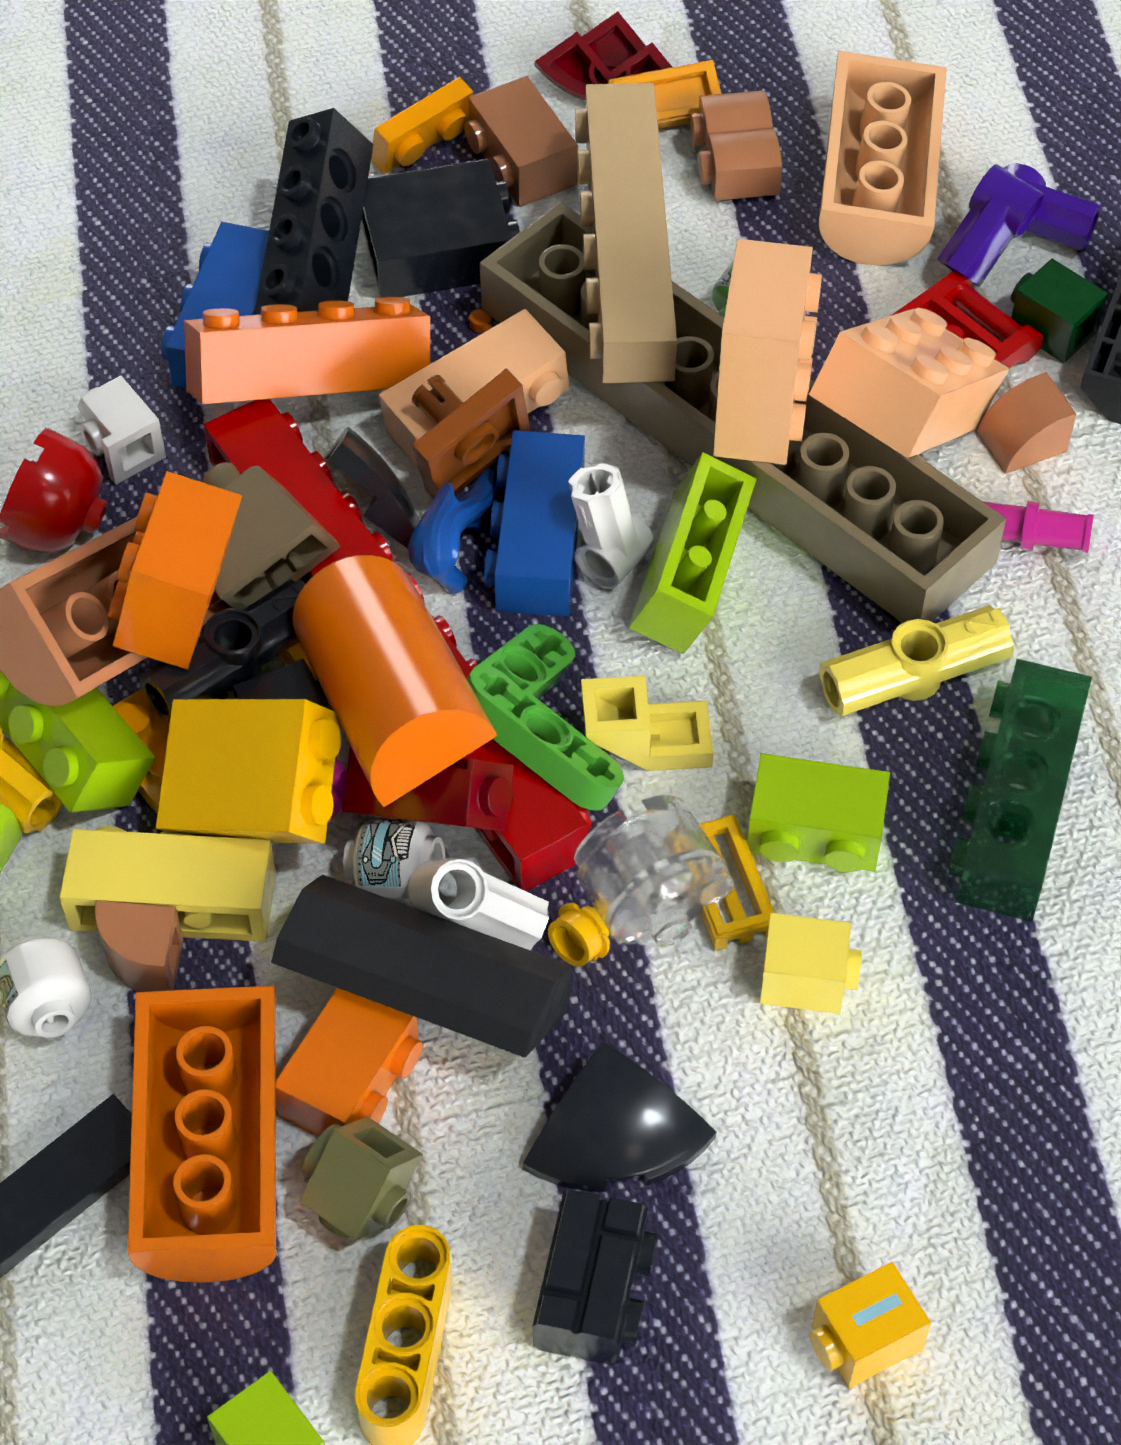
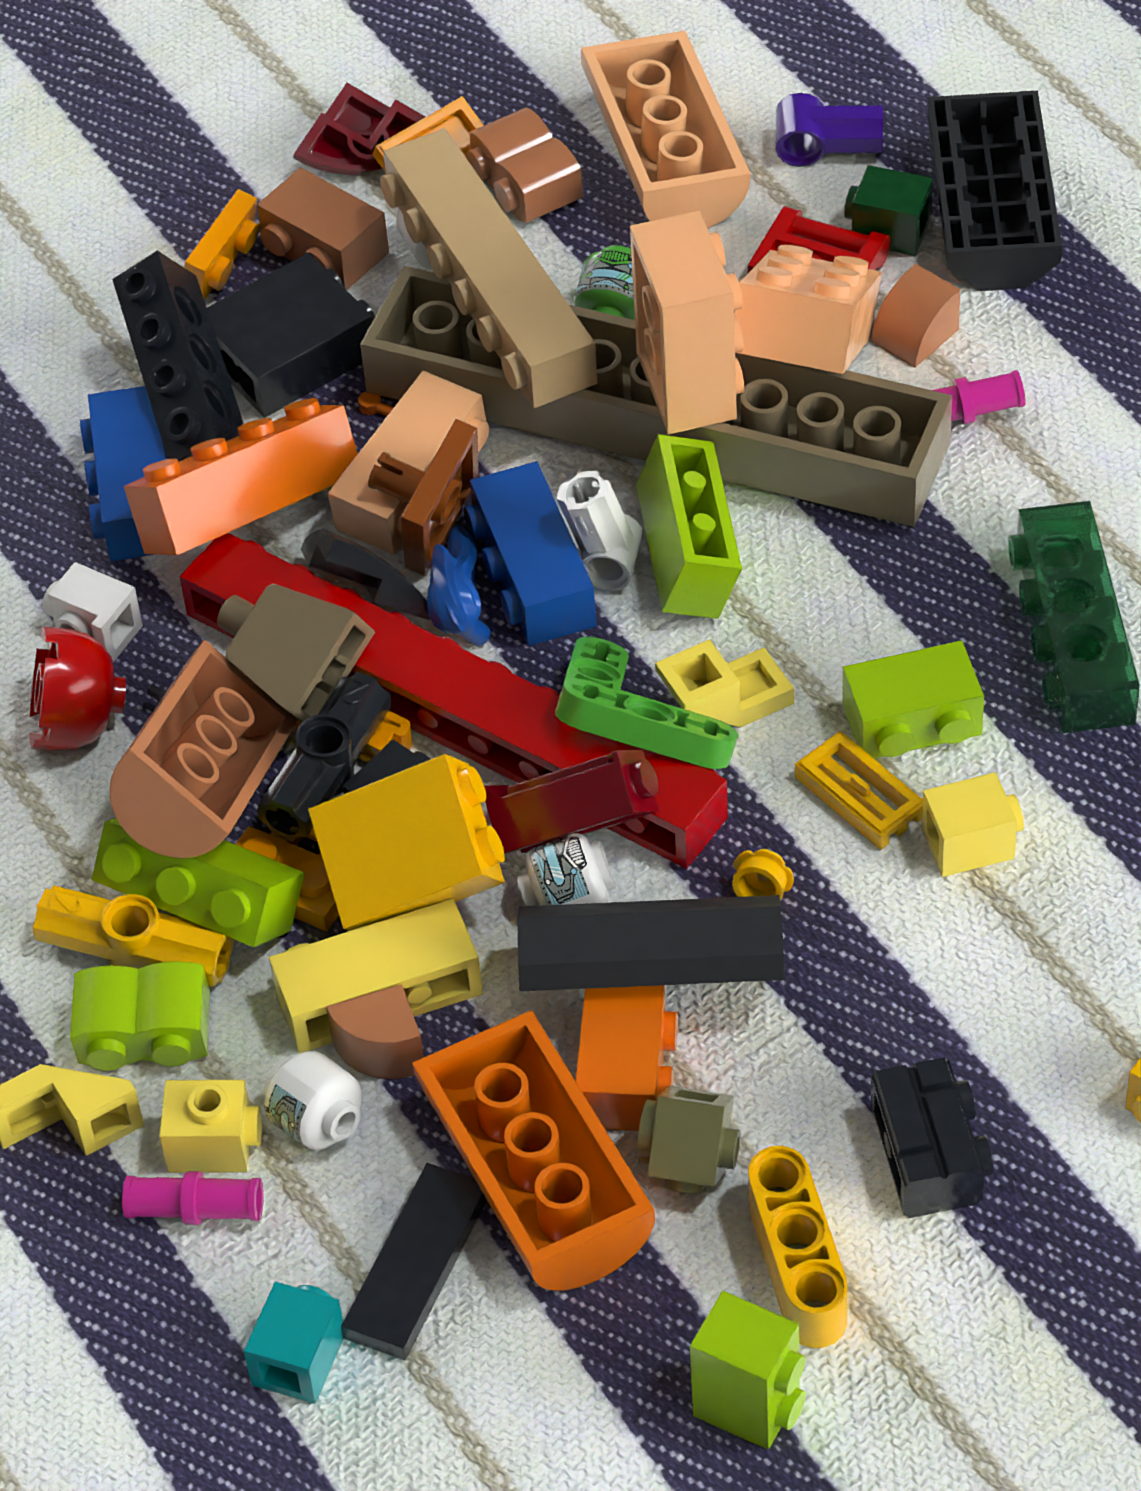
camera: 20 degrees left, 5 degrees down
(172, 568) = (263, 691): orange brick -> none
(387, 674) = (504, 718): orange brick -> none
(480, 902) = (662, 875): white piece -> none
(616, 1127) = (879, 1016): black brick -> none
(651, 872) = (803, 797): clear brick -> none
(888, 668) = (928, 546): light yellow piece -> none
(998, 212) = (799, 143): dark purple piece -> none

